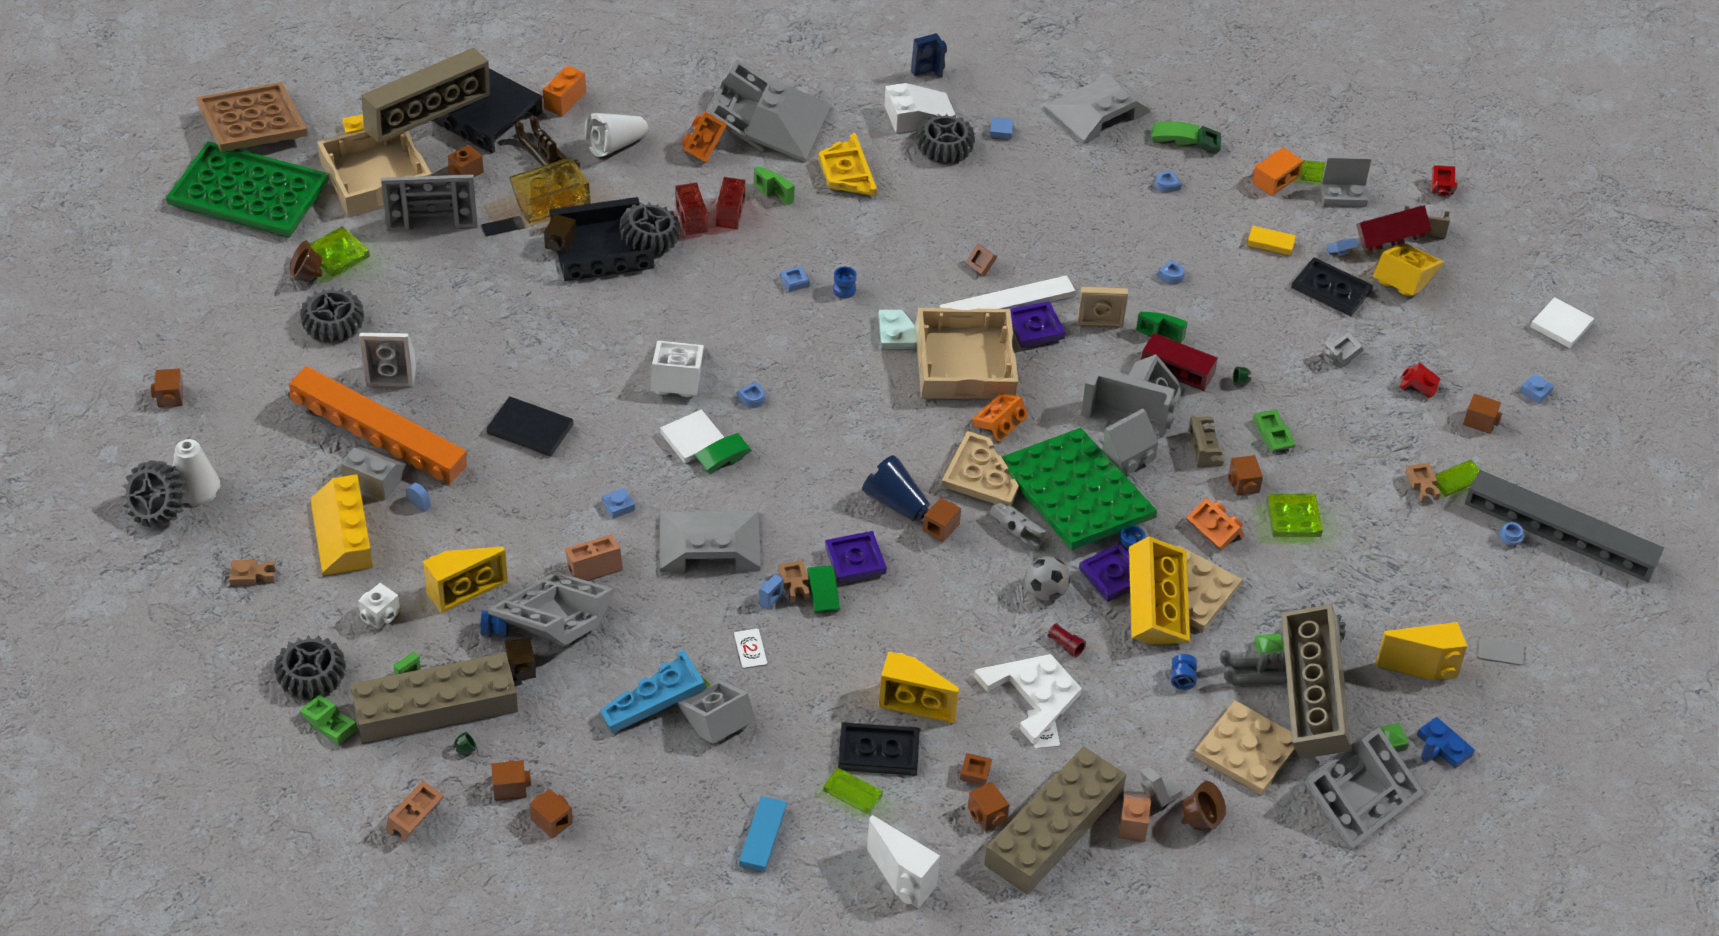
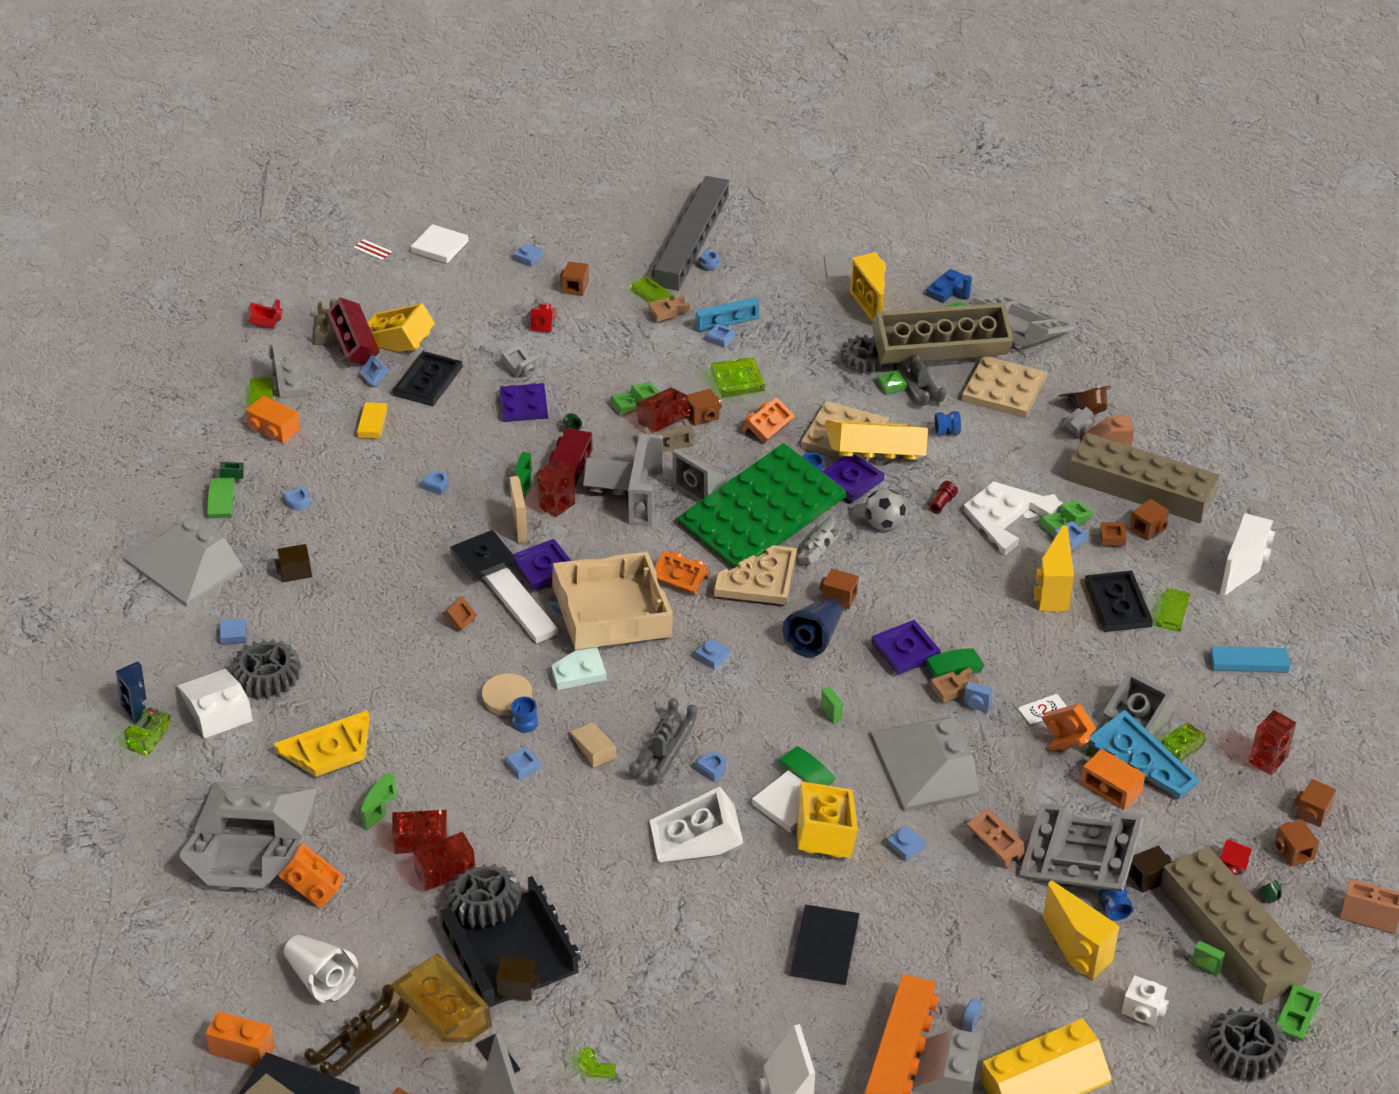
camera: 100 degrees left, 5 degrees down
(468, 270) = (593, 1066): none -> clear neon green arm
(505, 721) = (1235, 856): none -> red bracket
(627, 791) = (1272, 742): none -> clear red brick
(634, 663) = (1112, 779): none -> orange brick
(656, 445) = (826, 820): none -> yellow slope
(661, 731) = (1184, 741): none -> clear neon green leg
(699, 635) = (1068, 726): none -> orange bracket
(782, 364) = (664, 744): none -> dark grey piece
(793, 483) = (831, 704): none -> bright green tile
(800, 323) = (594, 744): none -> tan slope
(877, 280) = (502, 690): none -> tan tile
(890, 421) = (712, 653): none -> medium blue plate
(892, 69) = (148, 729): none -> clear neon green leg
(981, 731) = (1076, 534): none -> medium blue plate
(1012, 739) = (1068, 512): none -> bright green slope
(1052, 281) = (482, 555): none -> black plate
(1073, 166) = (293, 563): none -> dark brown brick
(1128, 336) = (556, 487): none -> clear red brick
(1242, 438) = (663, 409): none -> clear red brick
(1282, 349) = (523, 402): none -> dark purple plate
(1374, 520) = (720, 335): none -> medium blue tile
(1403, 526) = (727, 314): none -> dark azure tile
(1560, 275) = (373, 249): none -> sticker

